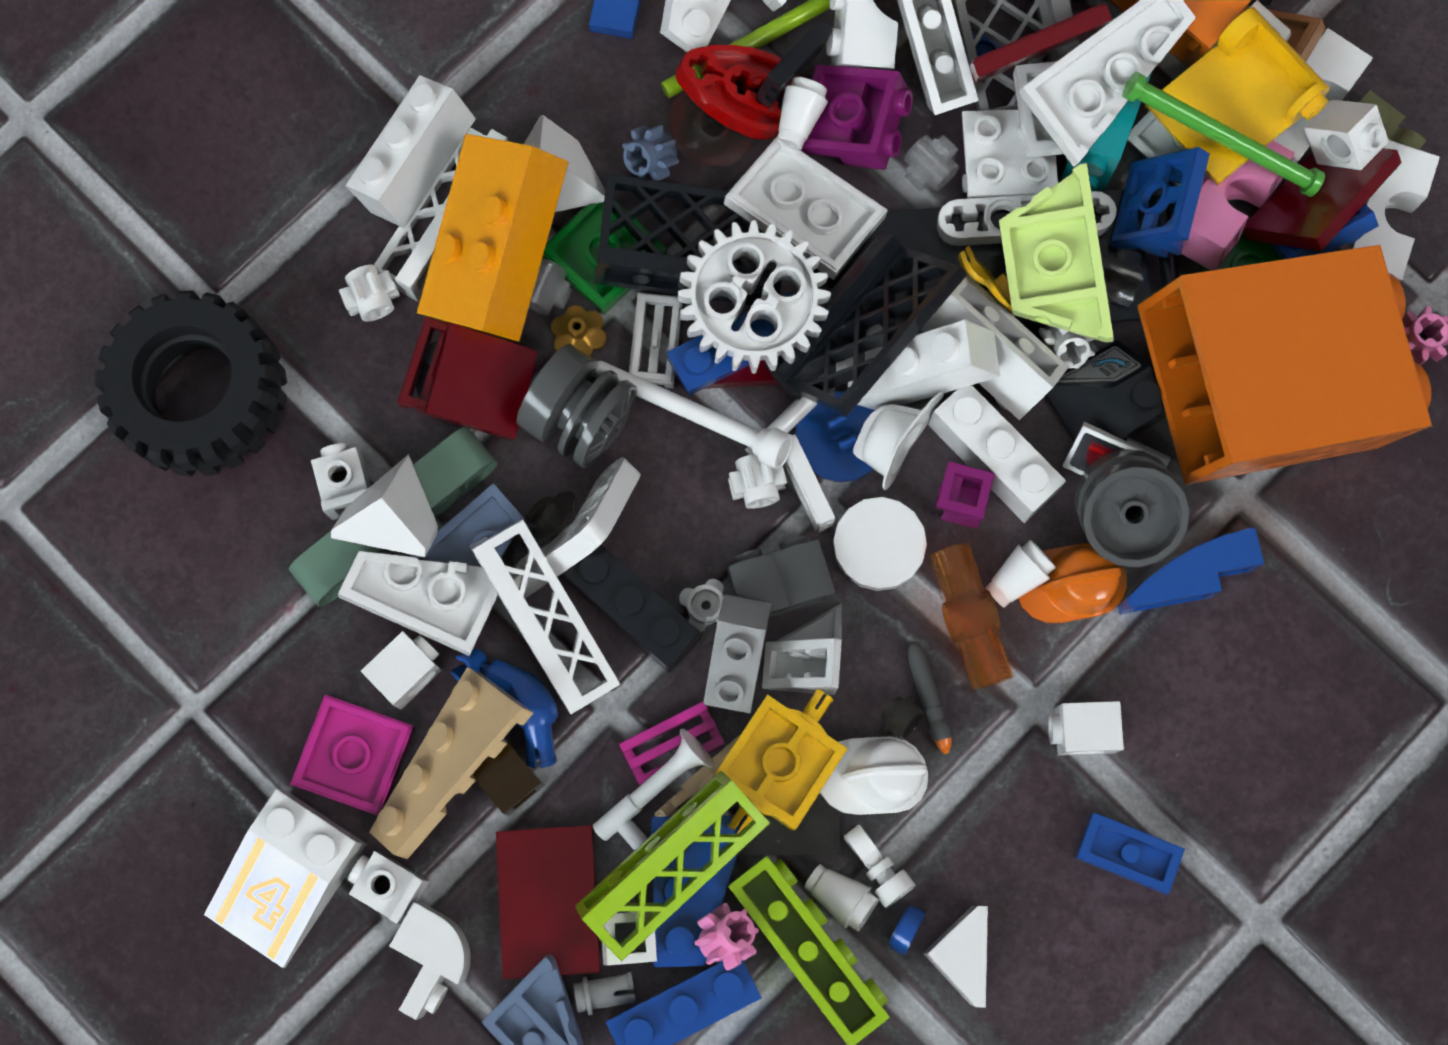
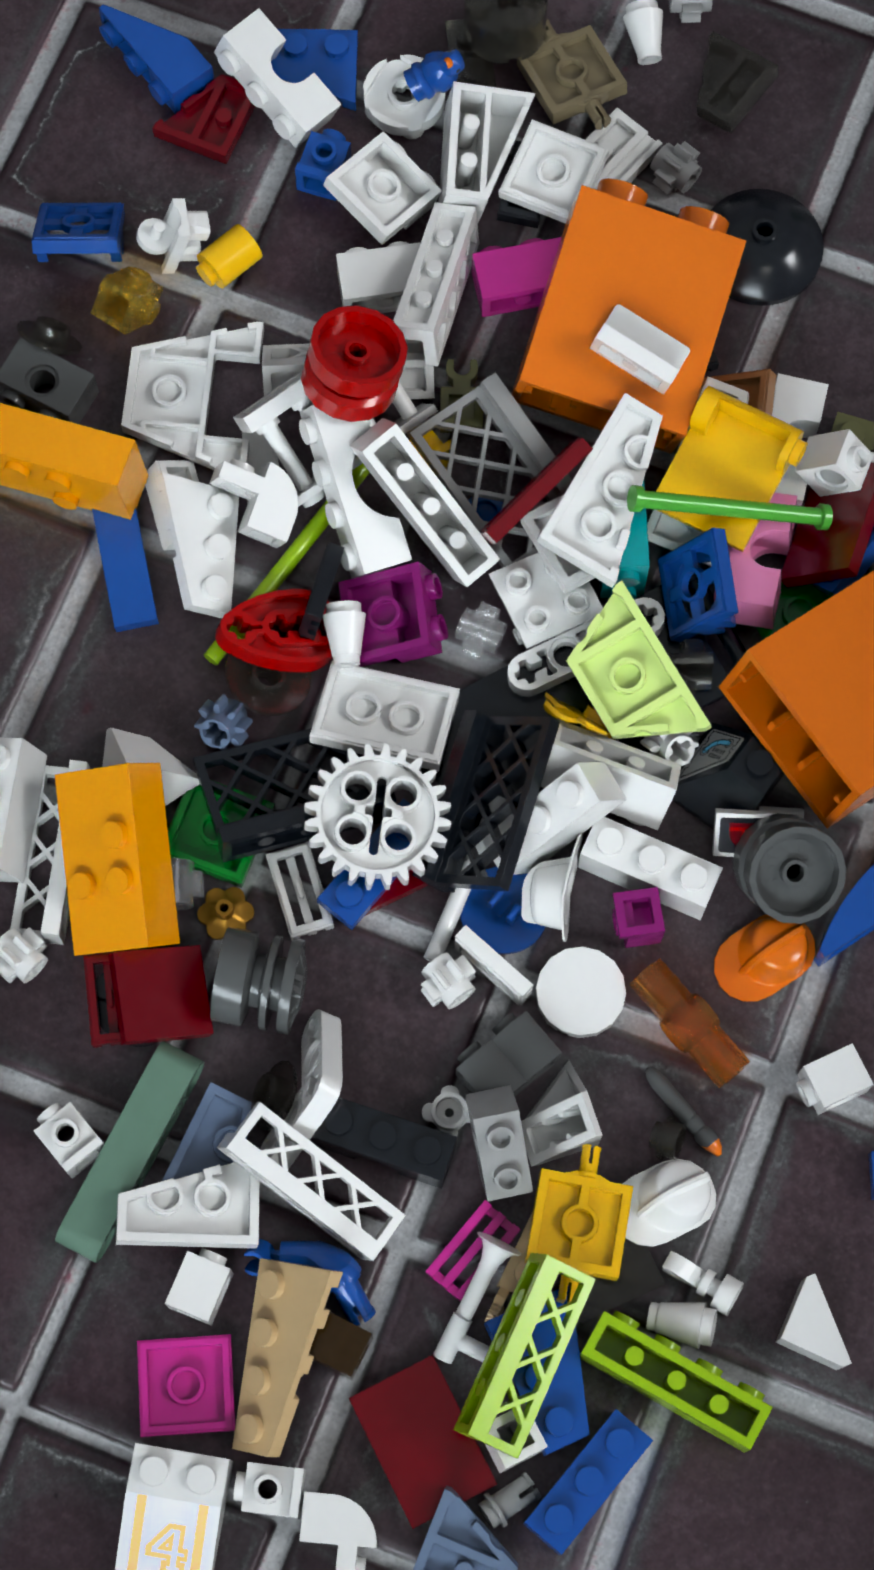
camera: 25 degrees left, 5 degrees down
(391, 514) = (131, 1148): white slope -> none
(726, 936) = (600, 1397): bright pink gear -> none
(769, 445) = (446, 944): white piece -> none
(906, 929) = (753, 1326): blue tile -> none
(1020, 573) = (717, 966): white cone -> none

